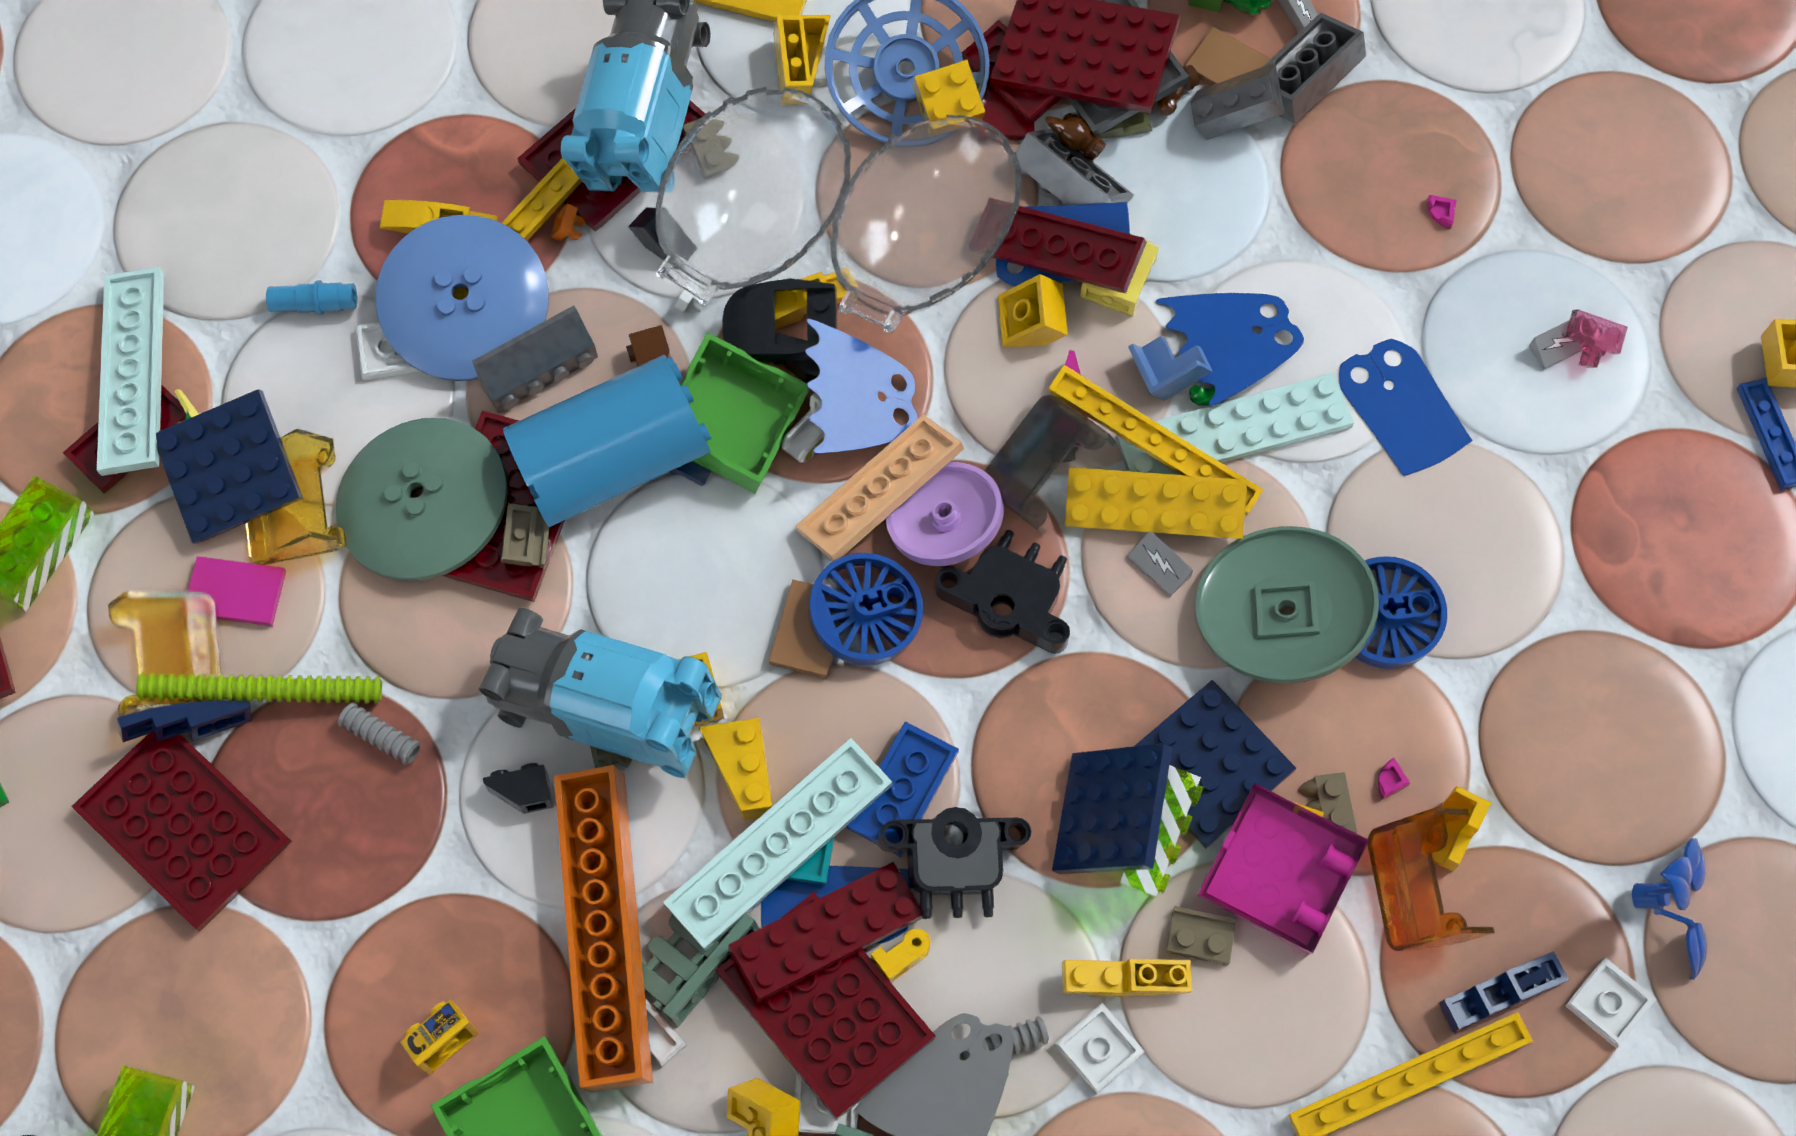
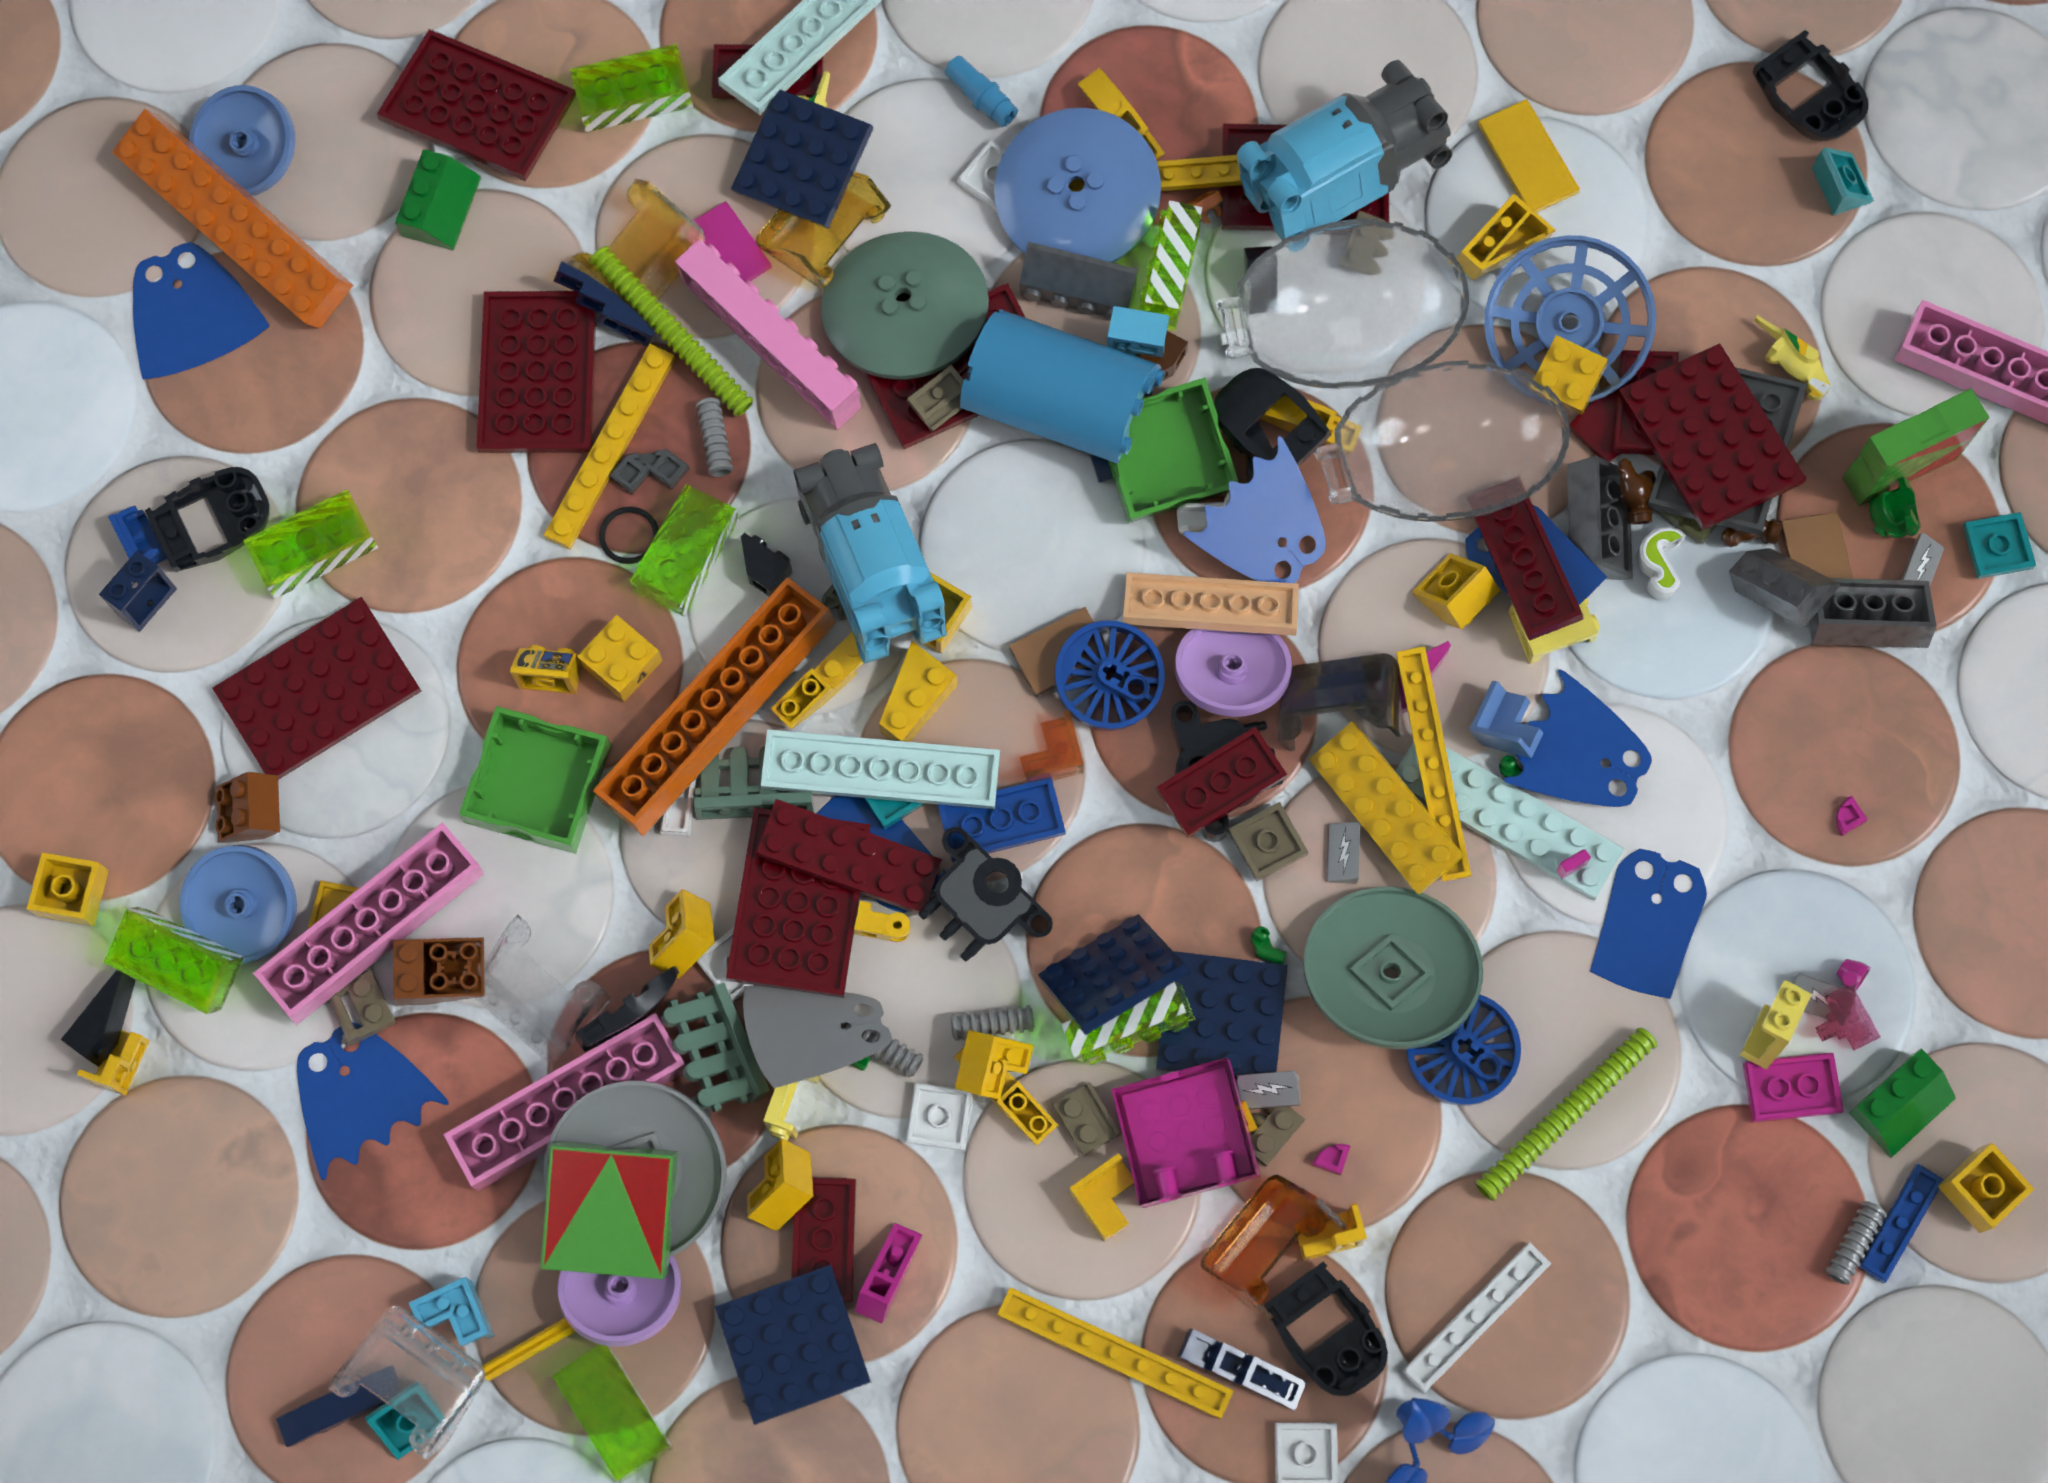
camera: 50 degrees right, 5 degrees up
(302, 824) = (609, 446): none -> yellow plate
(340, 616) = (769, 334): none -> bright pink brick
(341, 817) = (637, 467): none -> dark grey tile
(360, 874) = (607, 520): none -> black tyre
(448, 838) = (684, 549): none -> clear neon green brick
(487, 968) = (620, 658): none -> yellow brick
(591, 284) = (1171, 261): none -> clear neon green brick
(620, 349) = (1137, 331): none -> medium azure panel
(661, 827) = (820, 684): none -> yellow slope
(892, 696) = (1062, 753): none -> clear orange panel
(1031, 598) = (1221, 782): none -> dark red plate
(1060, 939) = (993, 1022): none -> light grey piece
(1095, 970) = (987, 1062): none -> yellow panel
(1103, 609) = (1268, 841): none -> dark tan plate
(1139, 169) = (1655, 564): none -> white animal
(1174, 682) = (1263, 947): none -> green arm
(1268, 981) = (1095, 1196): none -> yellow panel
(1302, 775) = (1270, 1089): none -> light grey slope
(1319, 412) = (1573, 863): none -> dark pink tile
(1501, 585) = (1566, 1113): none -> lime piece
(1560, 899) = (1349, 1356): none -> black slope
(1563, 304) = (1853, 973): none -> dark pink bar
(1569, 387) = (1775, 1025): none -> light yellow panel
(1604, 784) = (1476, 1318): none -> white tile
(1611, 417) = (1793, 1088): none -> dark pink tile
(1685, 354) = (1904, 1102): none -> green slope
(1766, 473) = (1856, 1242): none -> light grey piece

